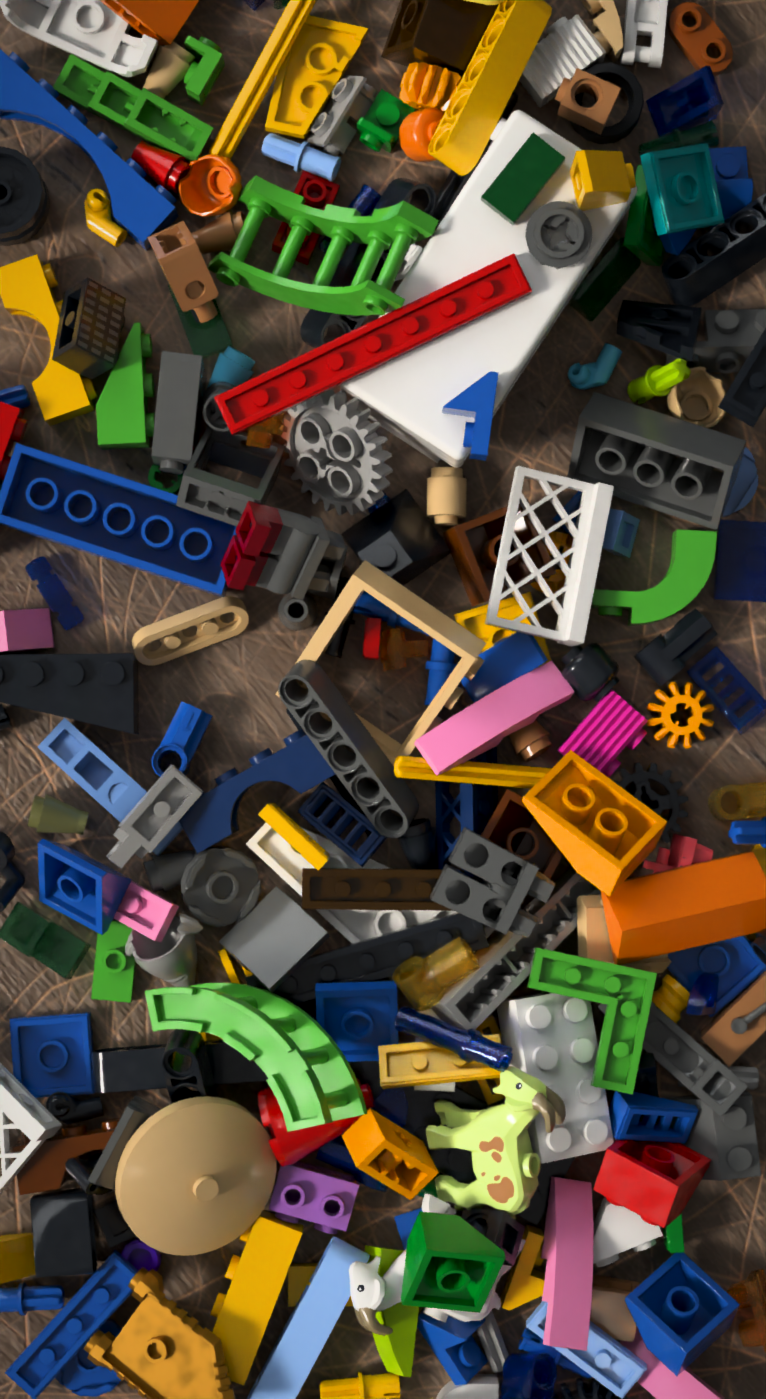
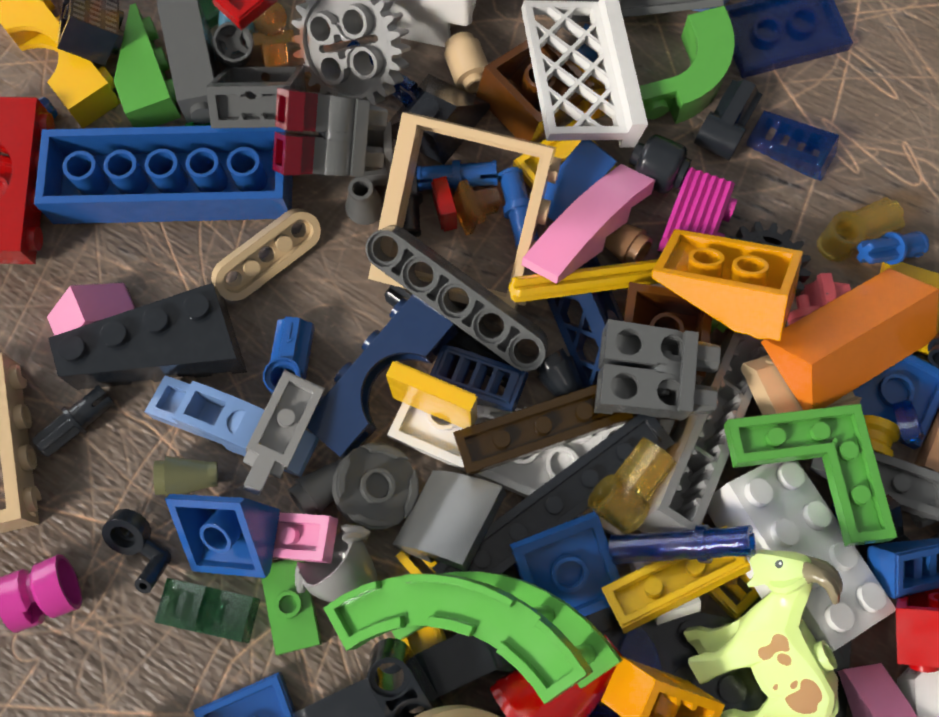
camera: 20 degrees left, 15 degrees down
(54, 593) = (124, 266): clear blue axle -> none
(620, 533) = (639, 42): medium blue tile -> none
(690, 723) = (774, 173): light orange gear -> none

